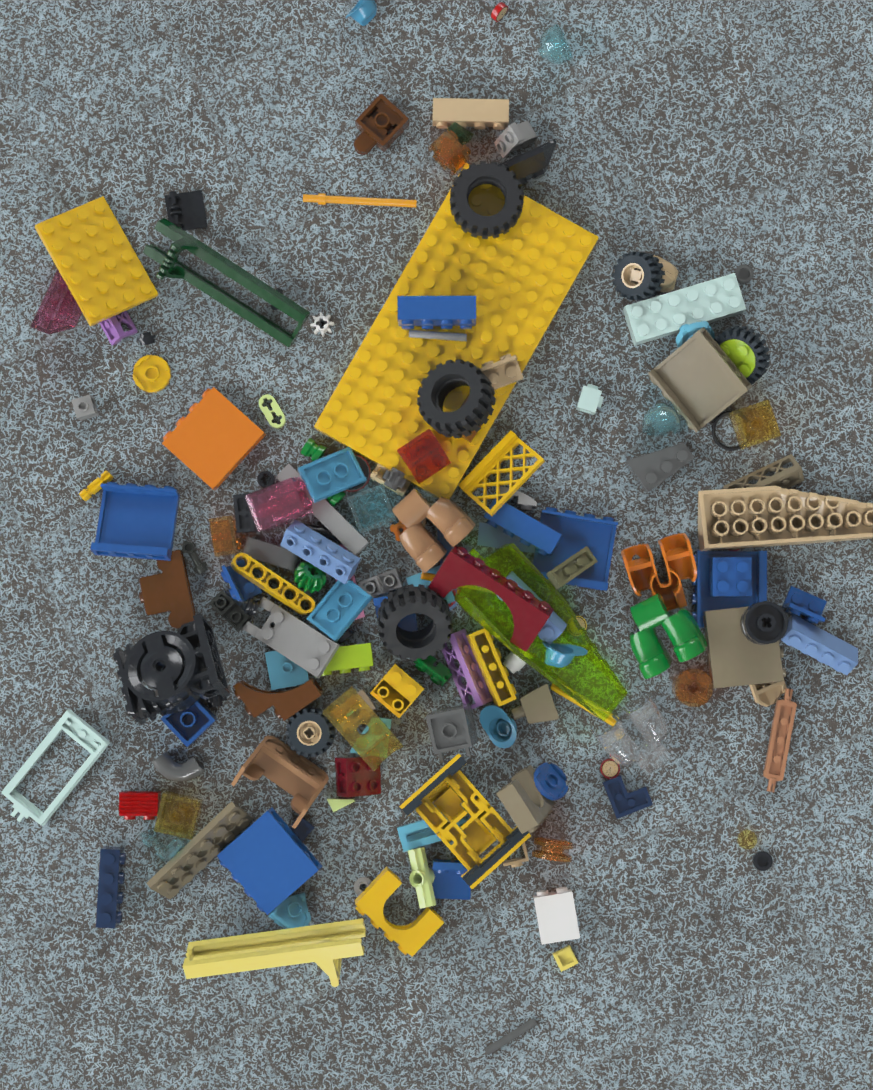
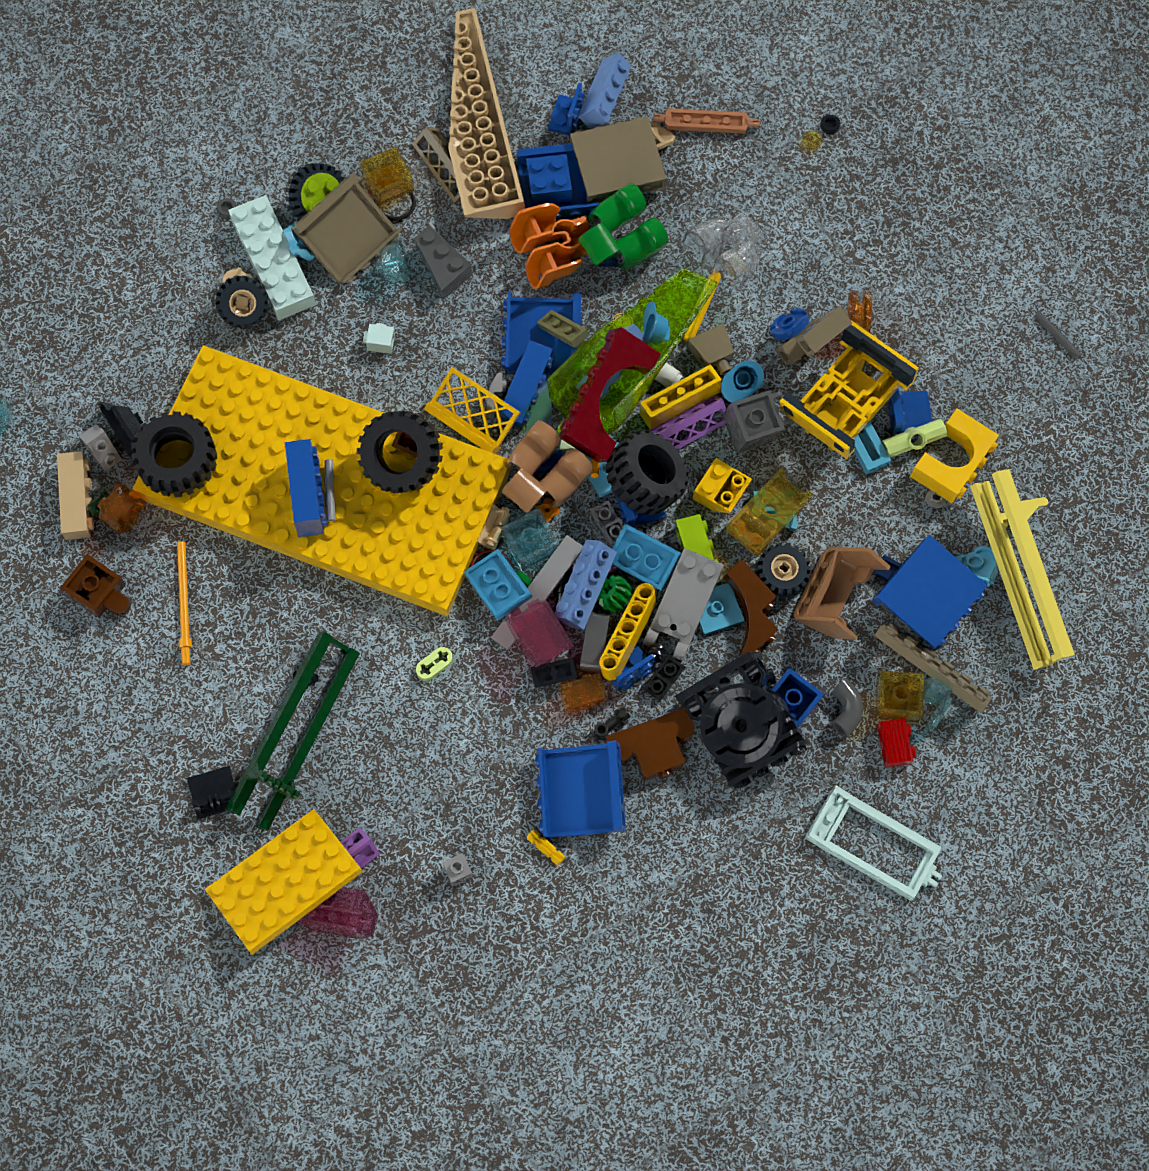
camera: 105 degrees left, 15 degrees down
(110, 886) = (993, 760): dark blue brick -> none
(146, 338) = (368, 813): black plate -> none
(147, 377) = (408, 810): yellow tile -> none
(213, 438) = (473, 721): orange panel -> none
(260, 476) = (509, 666): black bush -> none
(312, 450) = (472, 612): green wheel -> none
(326, 327) = (335, 620): white gear -> none
(338, 803) = (853, 534): yellowish green piece -> none
(356, 778) = (822, 521): dark red bracket -> none
(394, 479) = (494, 515): dark grey gear -> none
(424, 456) = (464, 484): clear red slope -> none
(436, 673) = (697, 451): green hinge -> none
(502, 372) = (360, 415): tan bracket -> none
(556, 915) = (926, 304): white brick -> none
(565, 958) = (966, 293): light yellow tile -> none
(609, 768) = (764, 274): tile -> none
(623, 802) = (796, 255): dark blue plate -> none
(702, 682) = (668, 203): clear orange brick -> none
(775, 620) = (592, 136): black wheel -> none

